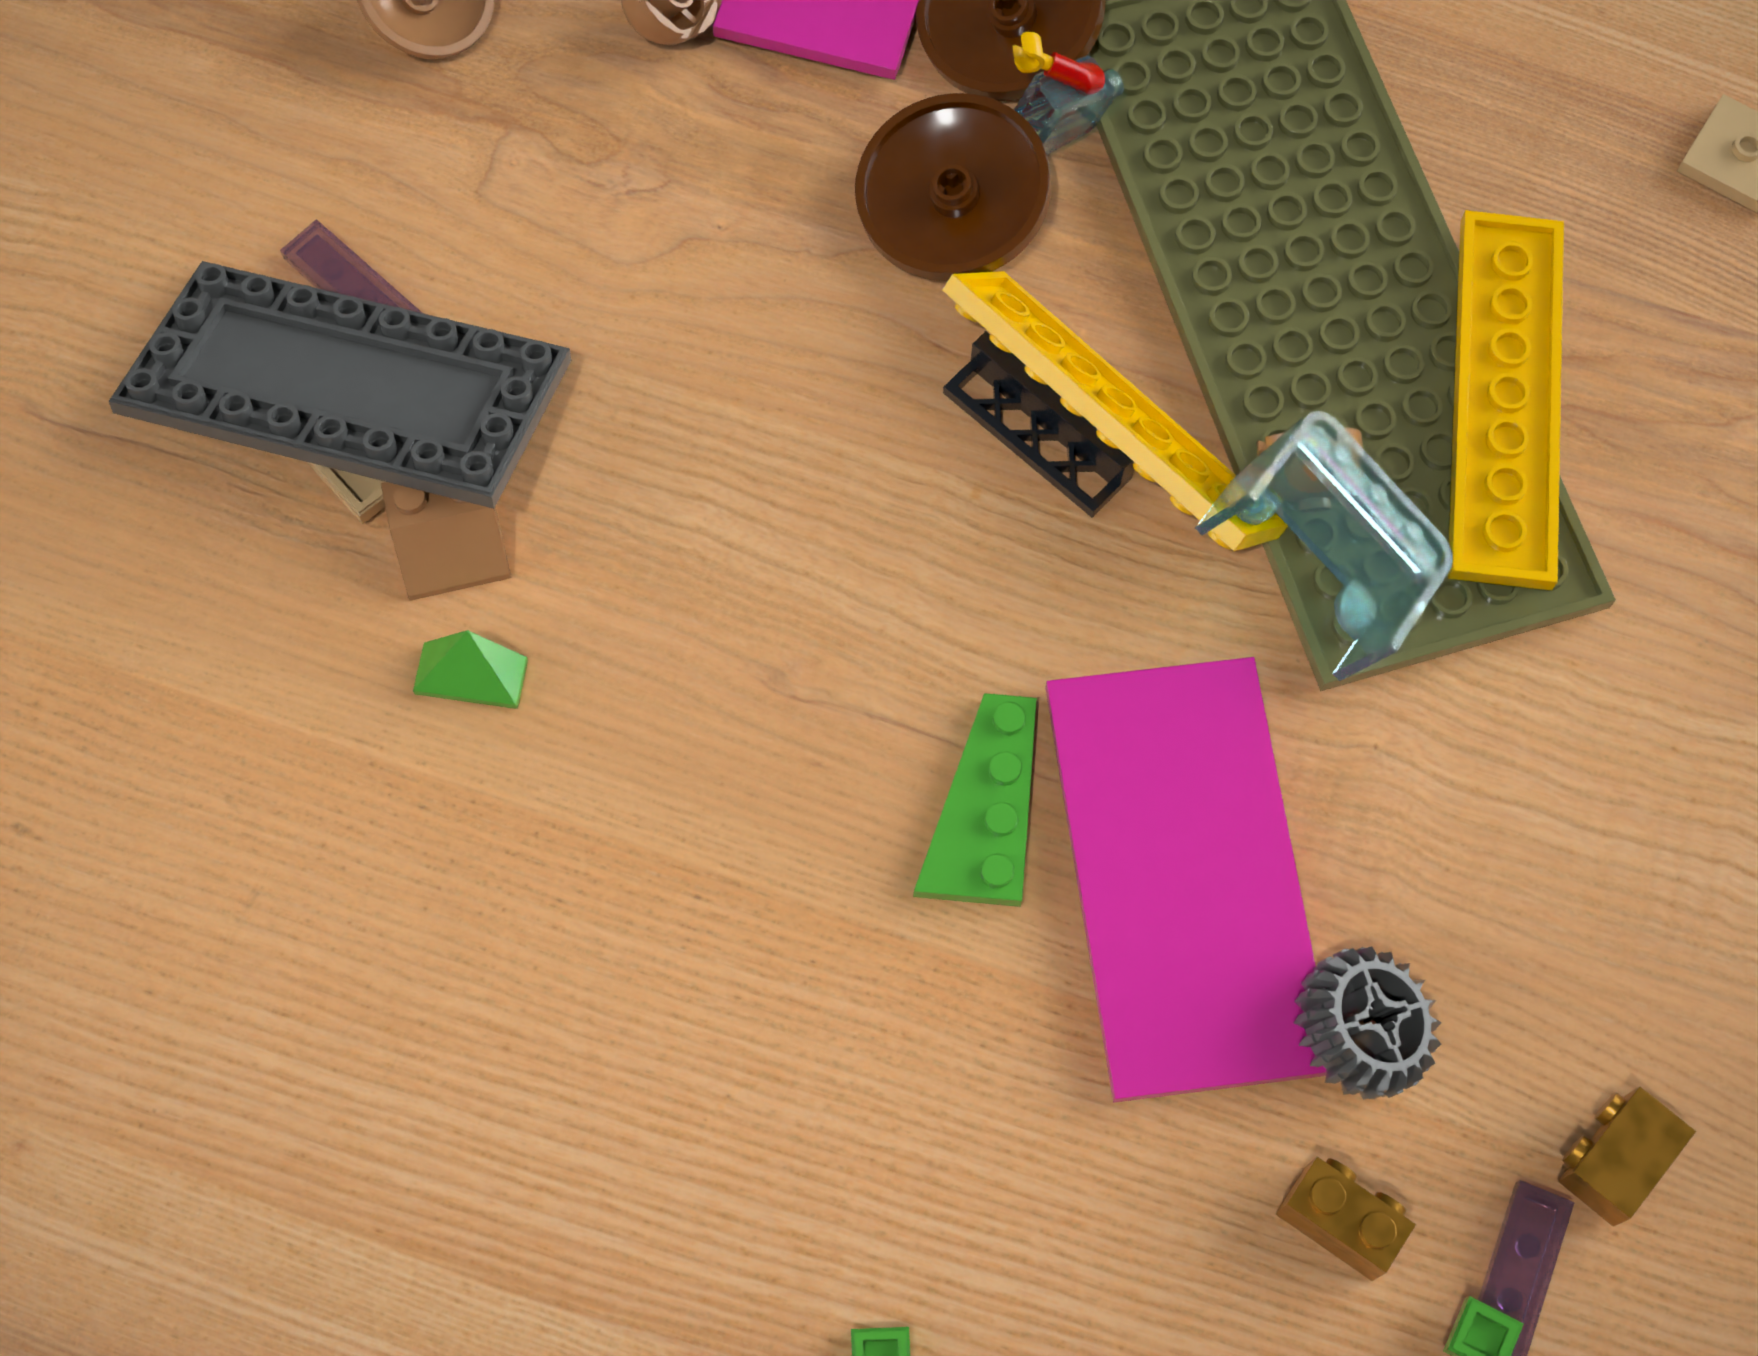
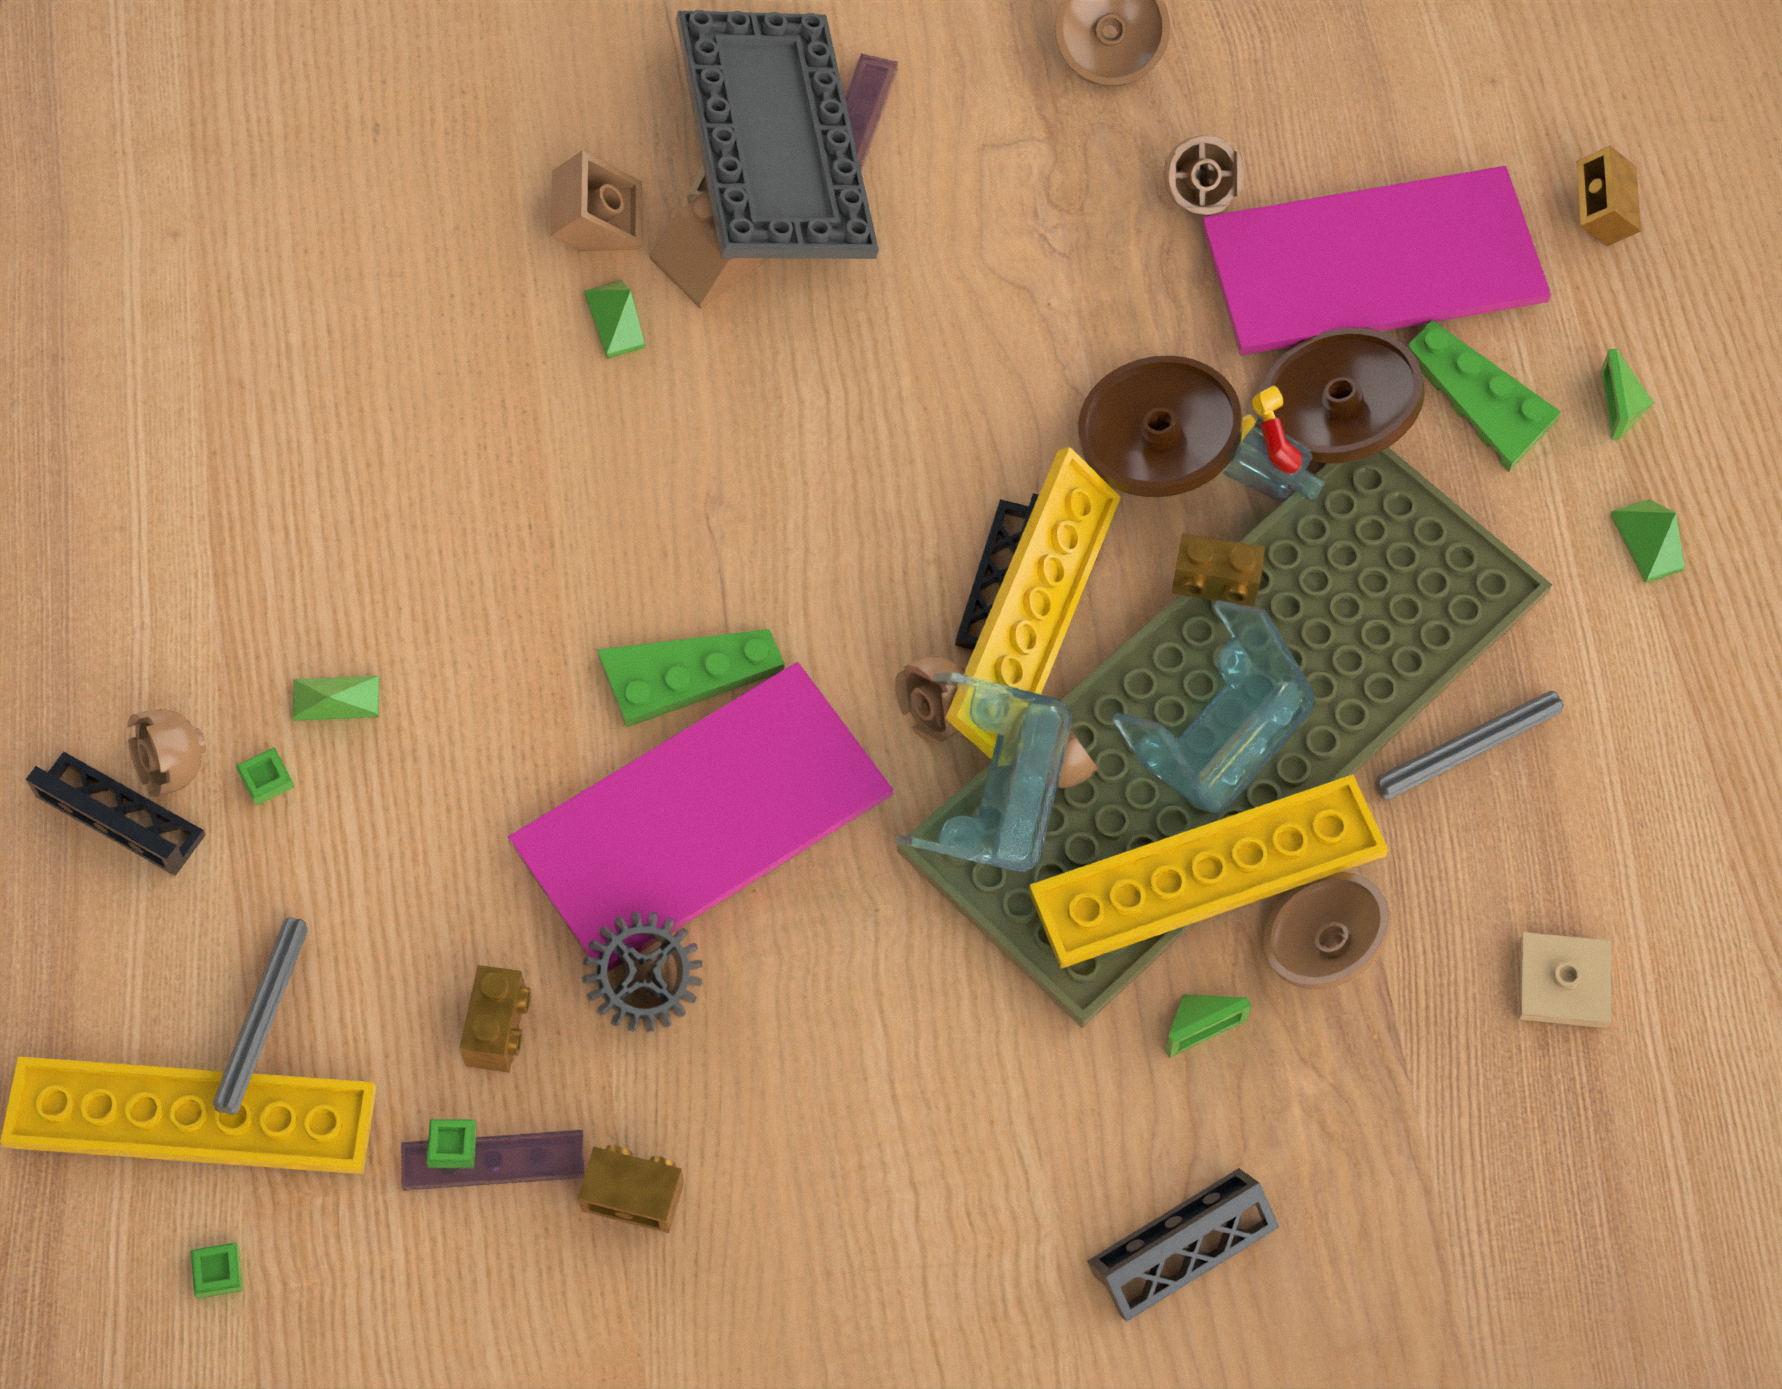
camera: 65 degrees right, 5 degrees down
(308, 624) = (595, 205): none -> medium nougat slope
(814, 1225) = (336, 698): none -> bright green slope
(1167, 214) = (1218, 570): none -> pearl gold brick
(1171, 559) = (927, 699): none -> medium nougat cylinder
(1346, 283) = (1242, 724): none -> clear light blue windscreen
(1453, 106) = (1469, 744): none -> axle
(1633, 288) = (1318, 917): none -> medium nougat dish
(1655, 491) = (1203, 1018): none -> bright green slope

